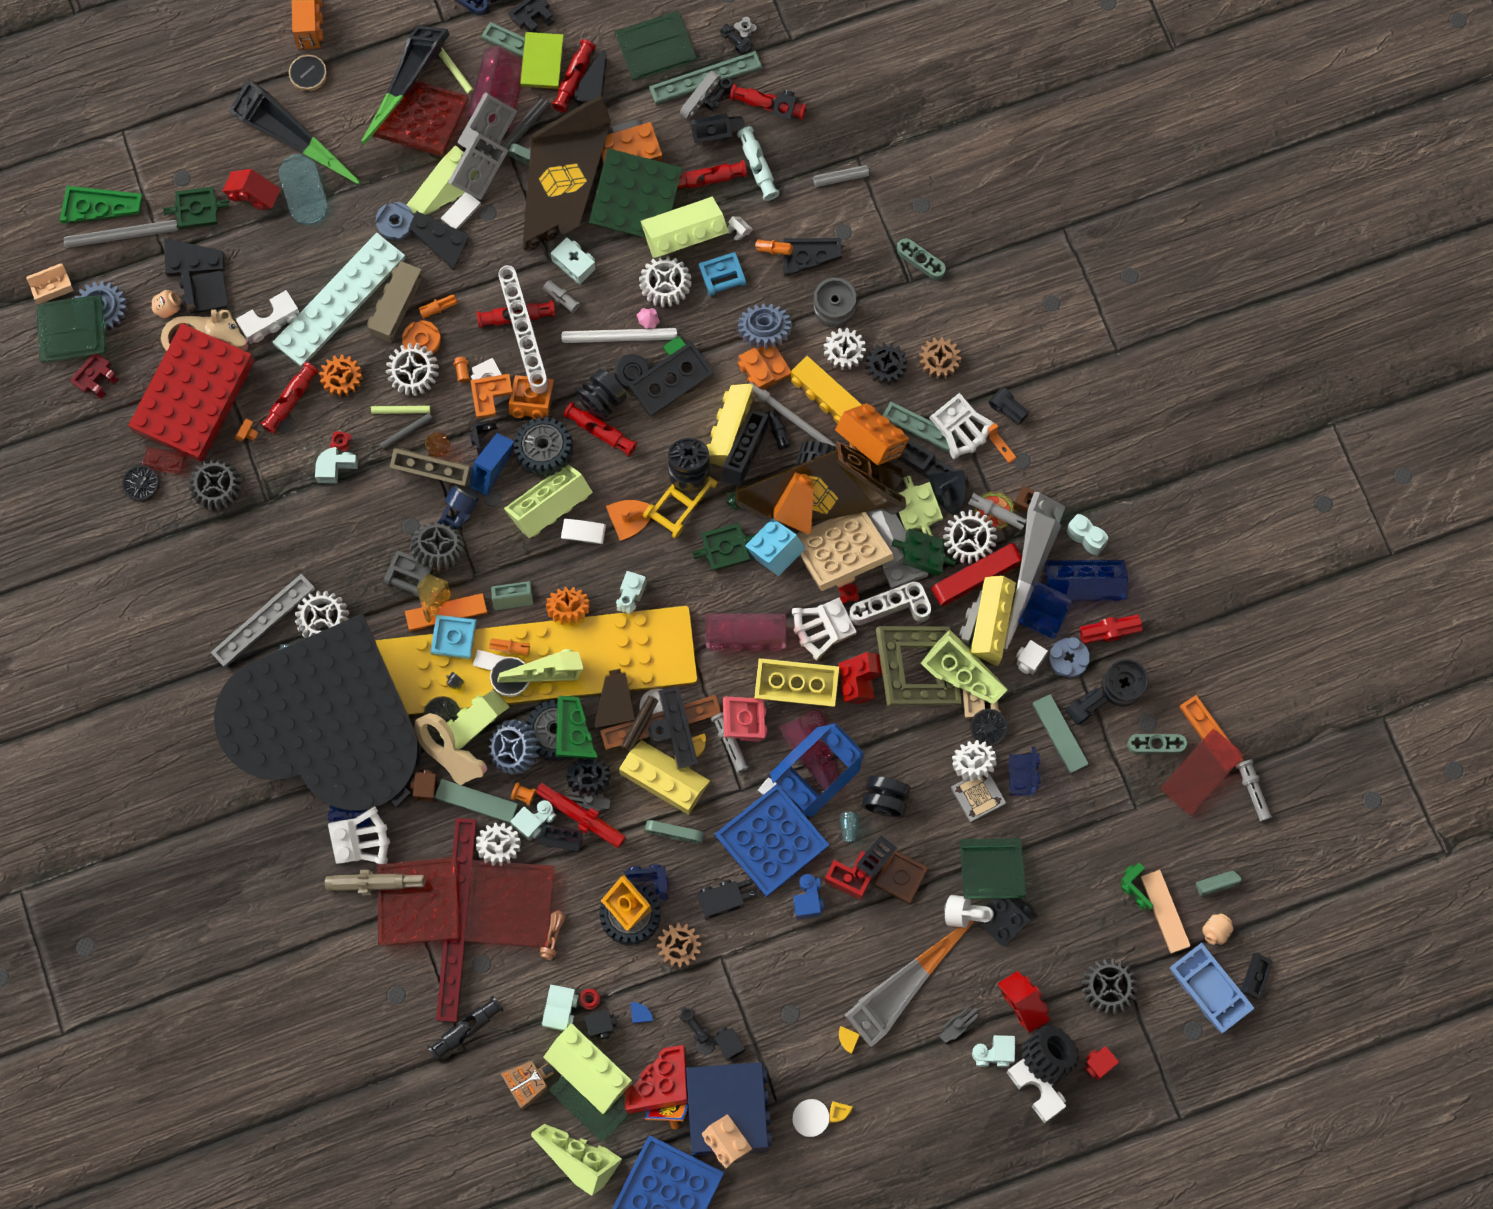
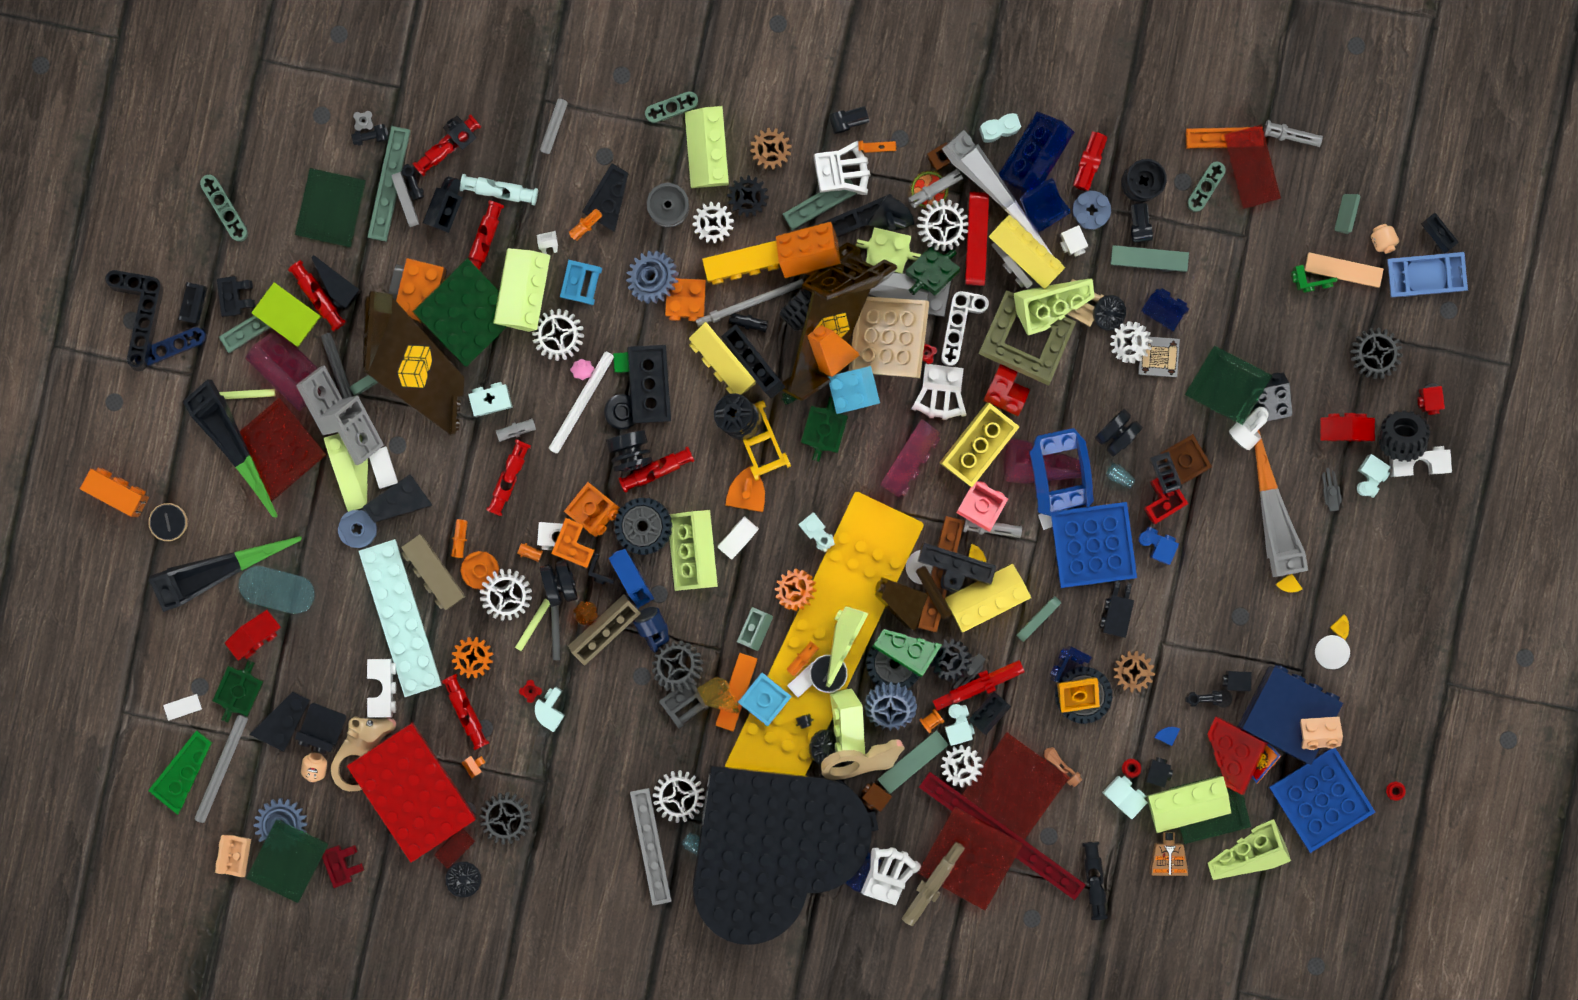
camera: 60 degrees left, 15 degrees up
(156, 174) = (182, 707): none -> white sticker
(449, 404) = (558, 583): none -> black wheel
(526, 337) = (521, 482): white beam -> none
(906, 307) = (706, 147): none -> yellowish green slope

